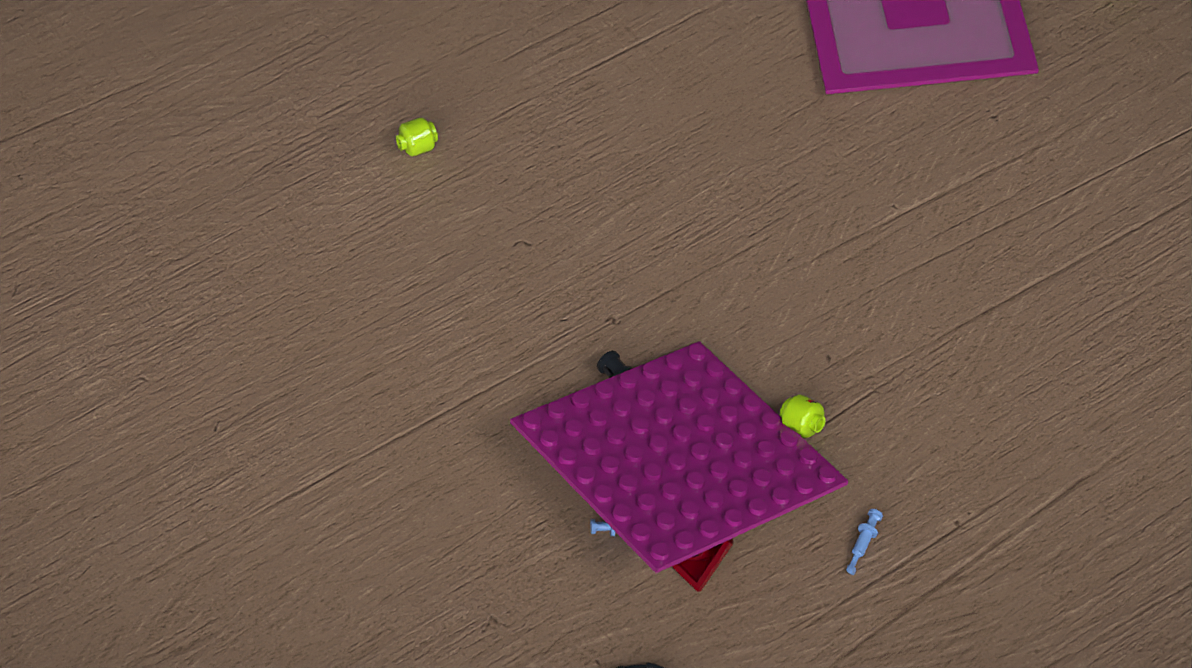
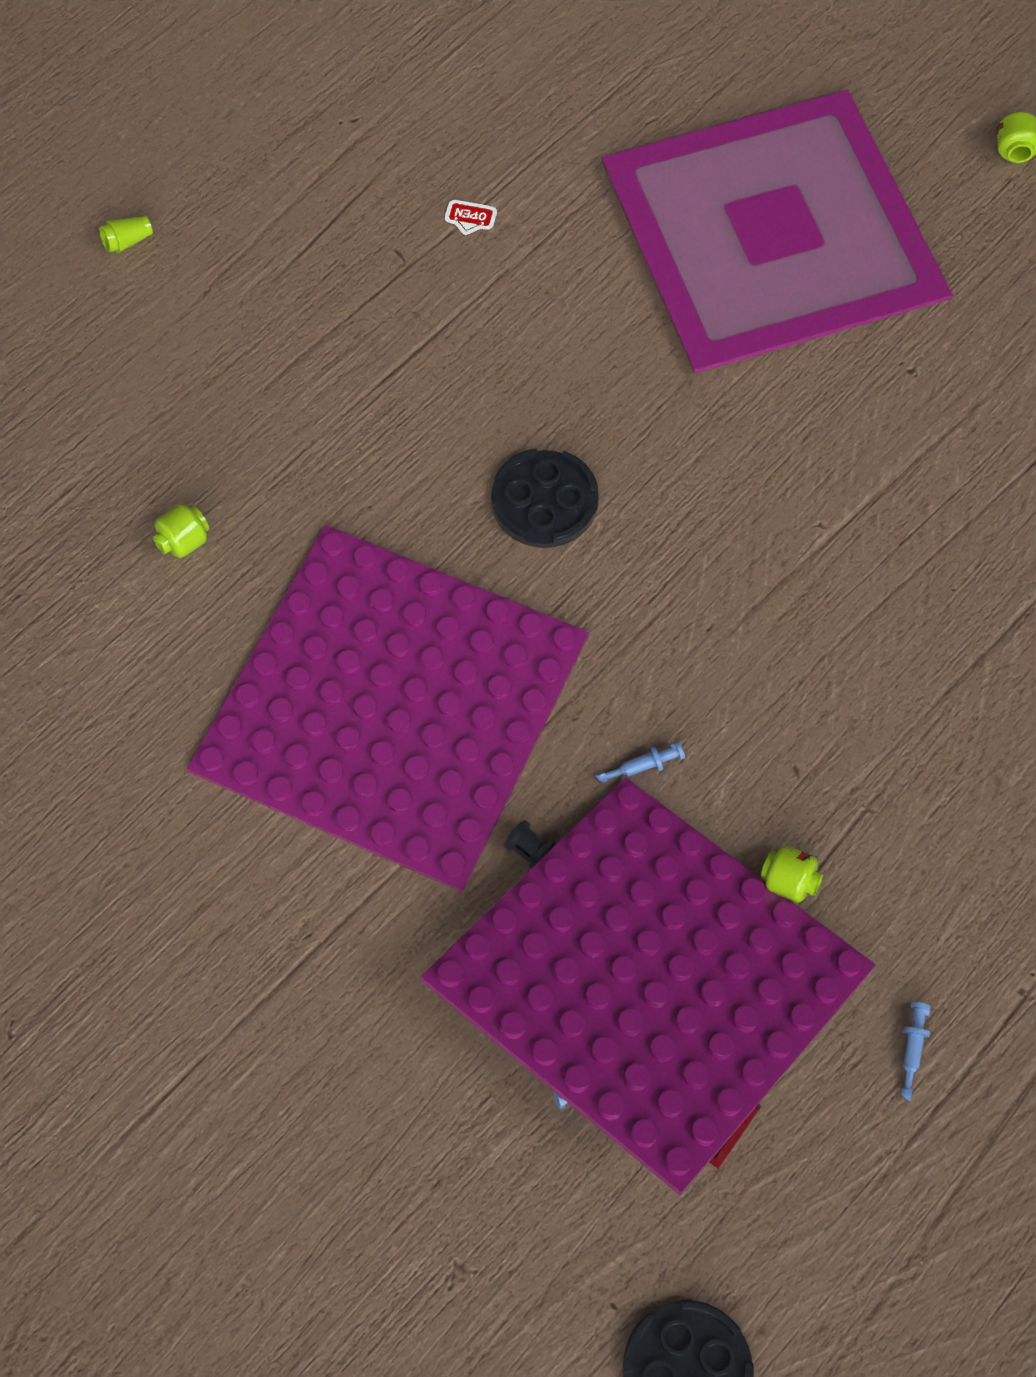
camera: 15 degrees left, 15 degrees up
(541, 271) = (390, 706): none -> magenta baseplate
(690, 158) = (544, 498): none -> black tile
(715, 333) = (644, 762): none -> medium blue piece

